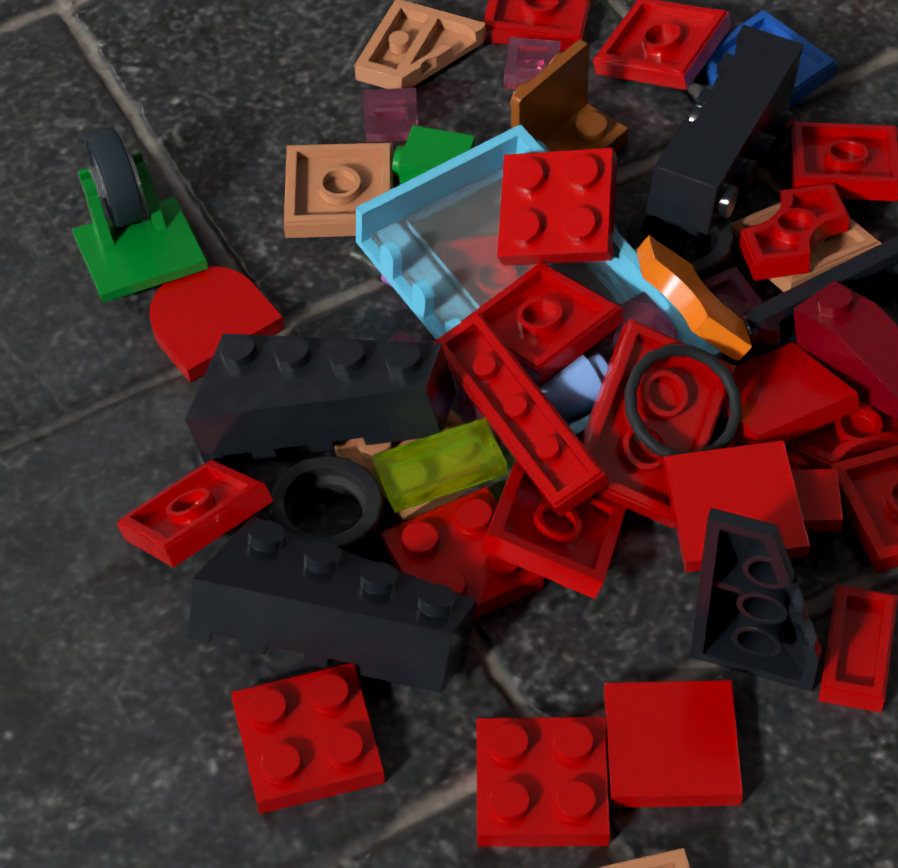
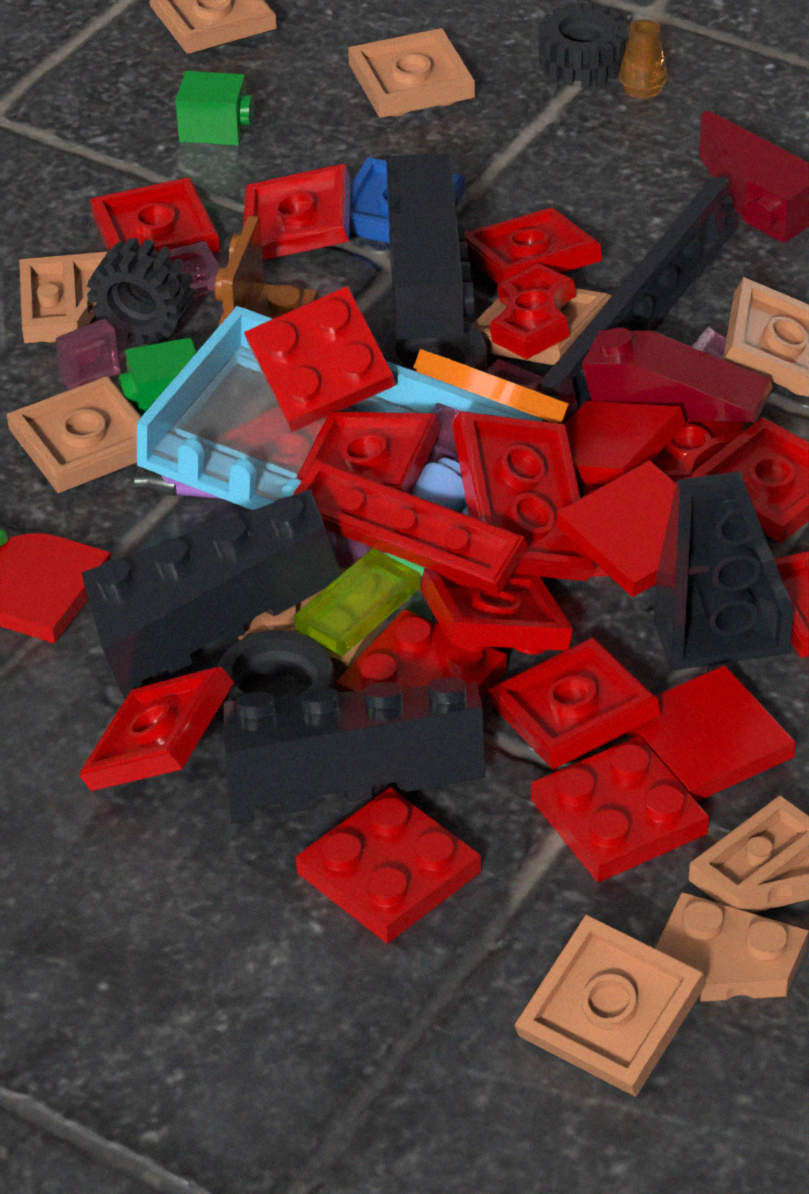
camera: 30 degrees left, 10 degrees down
(466, 71) = (155, 275): none -> black tyre
(568, 655) = (574, 703): none -> red tile
(702, 356) = (554, 427): black piece -> none

